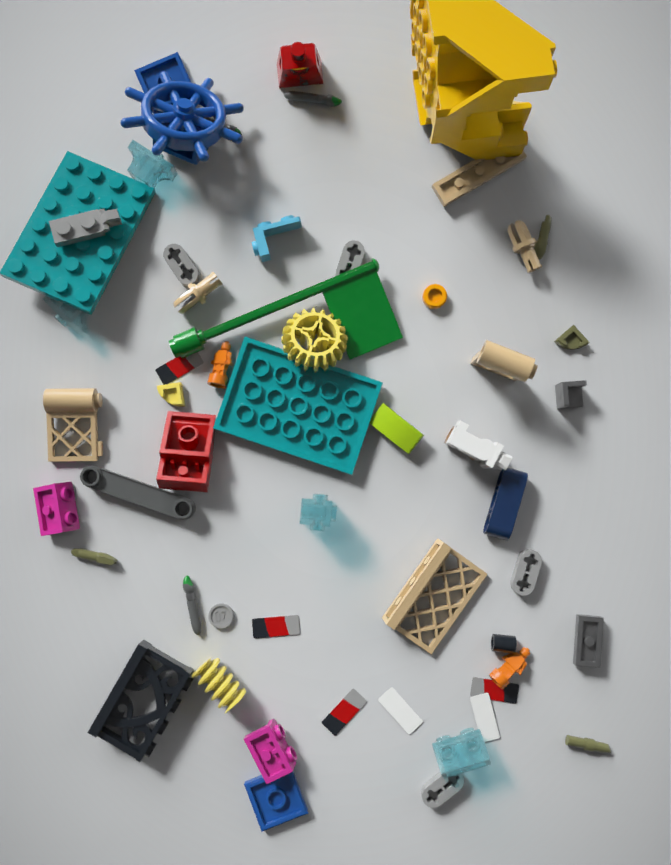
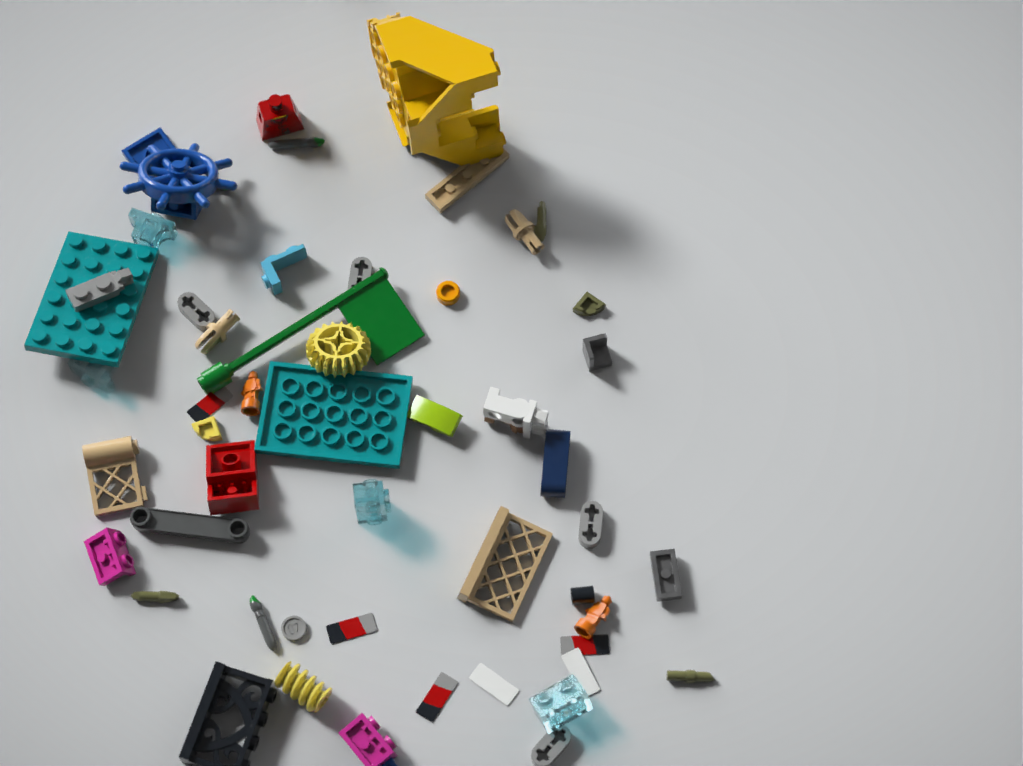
camera: 10 degrees left, 20 degrees down
(505, 362) = (529, 326): tan piece -> none

